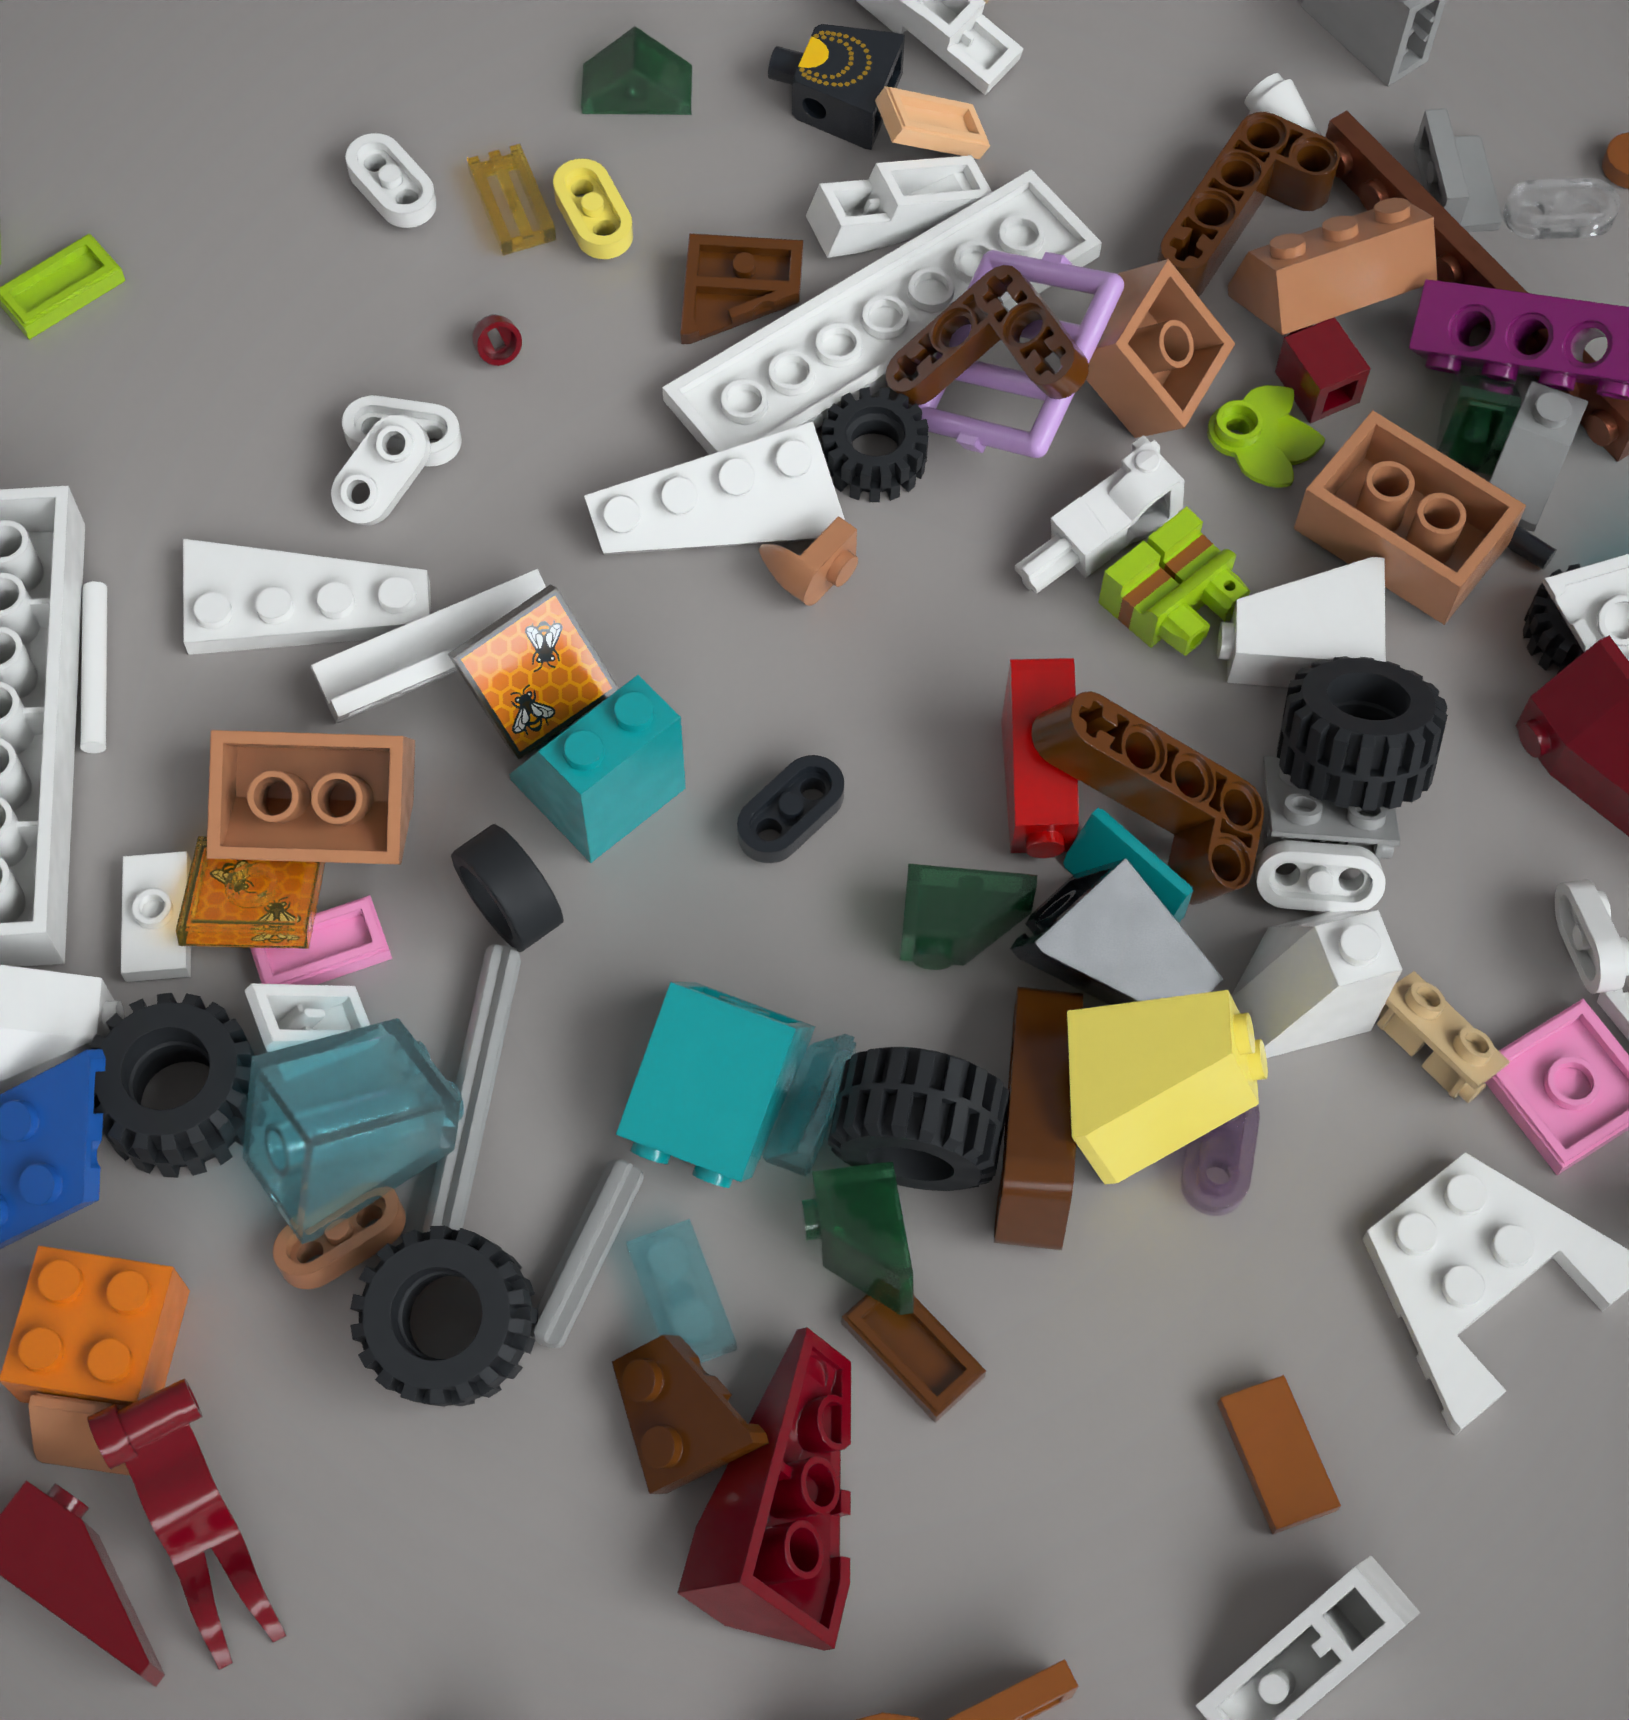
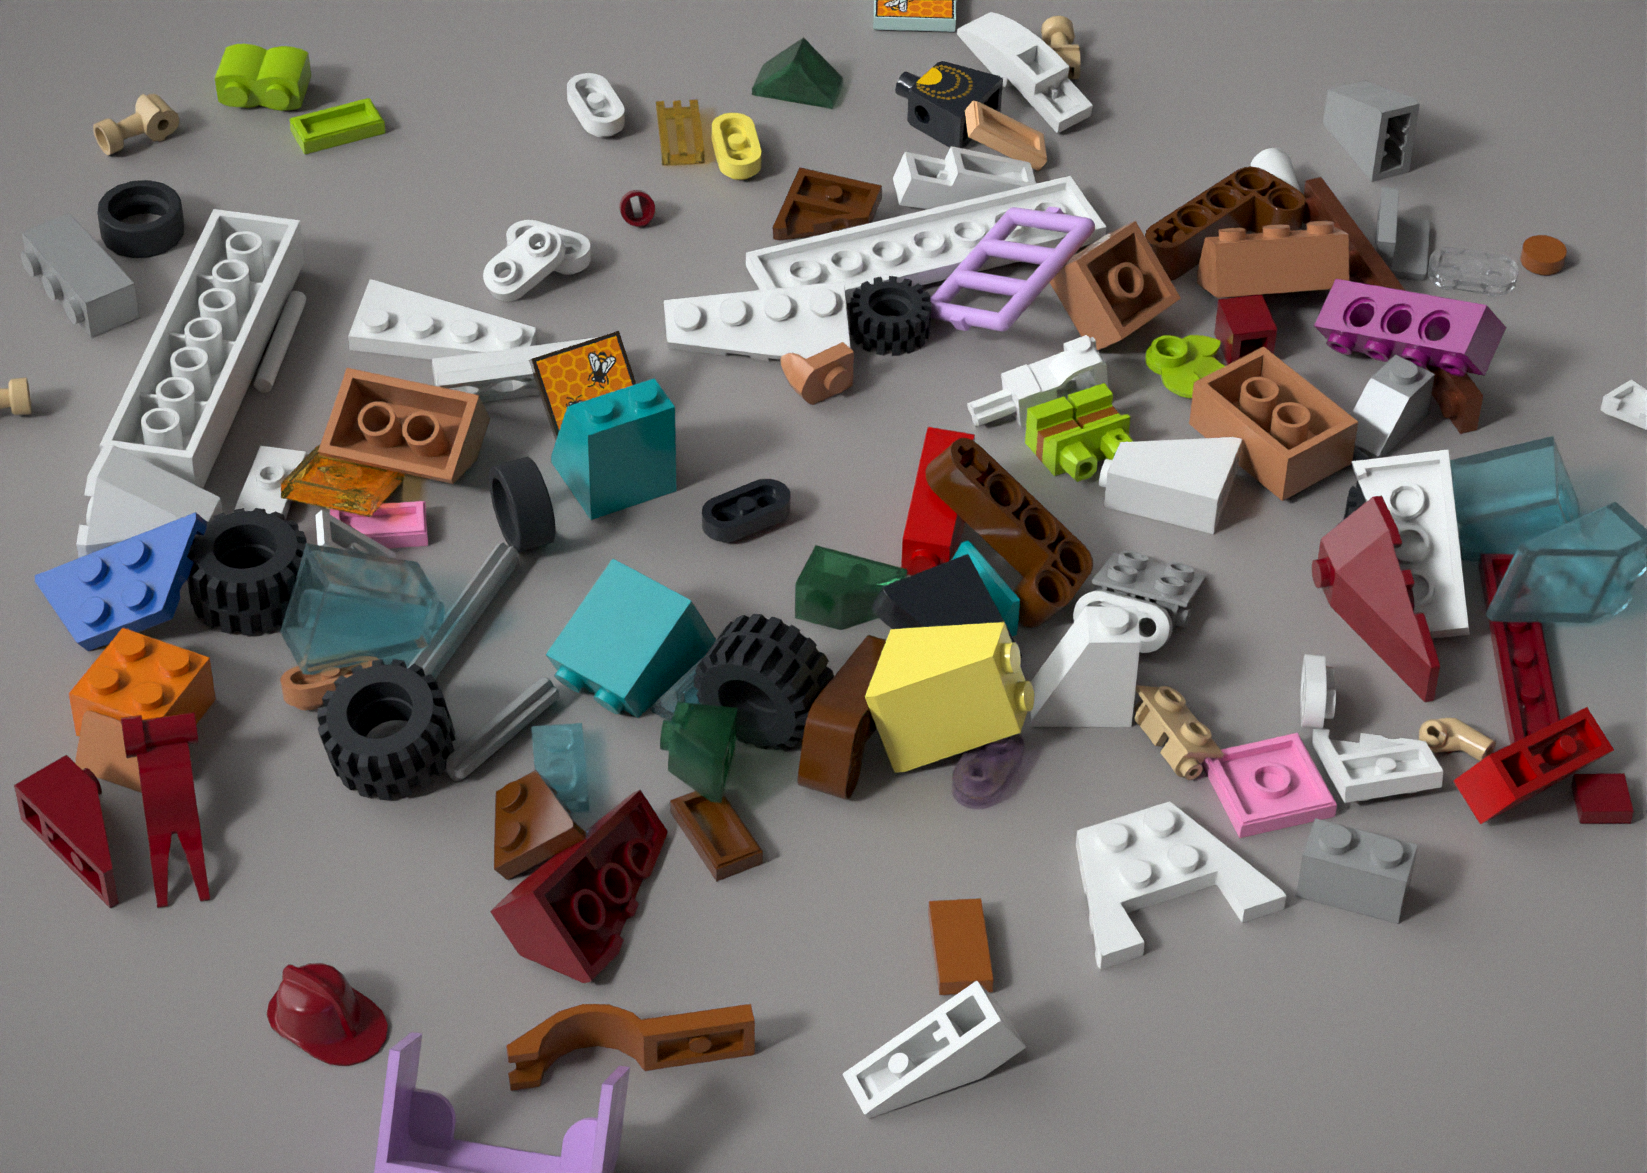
camera: 15 degrees right, 20 degrees down
(990, 323) = (1002, 236): reddish brown beam -> none
(1361, 732) = (1181, 533): black tyre -> none
(1477, 421) = (1347, 371): clear green slope -> none

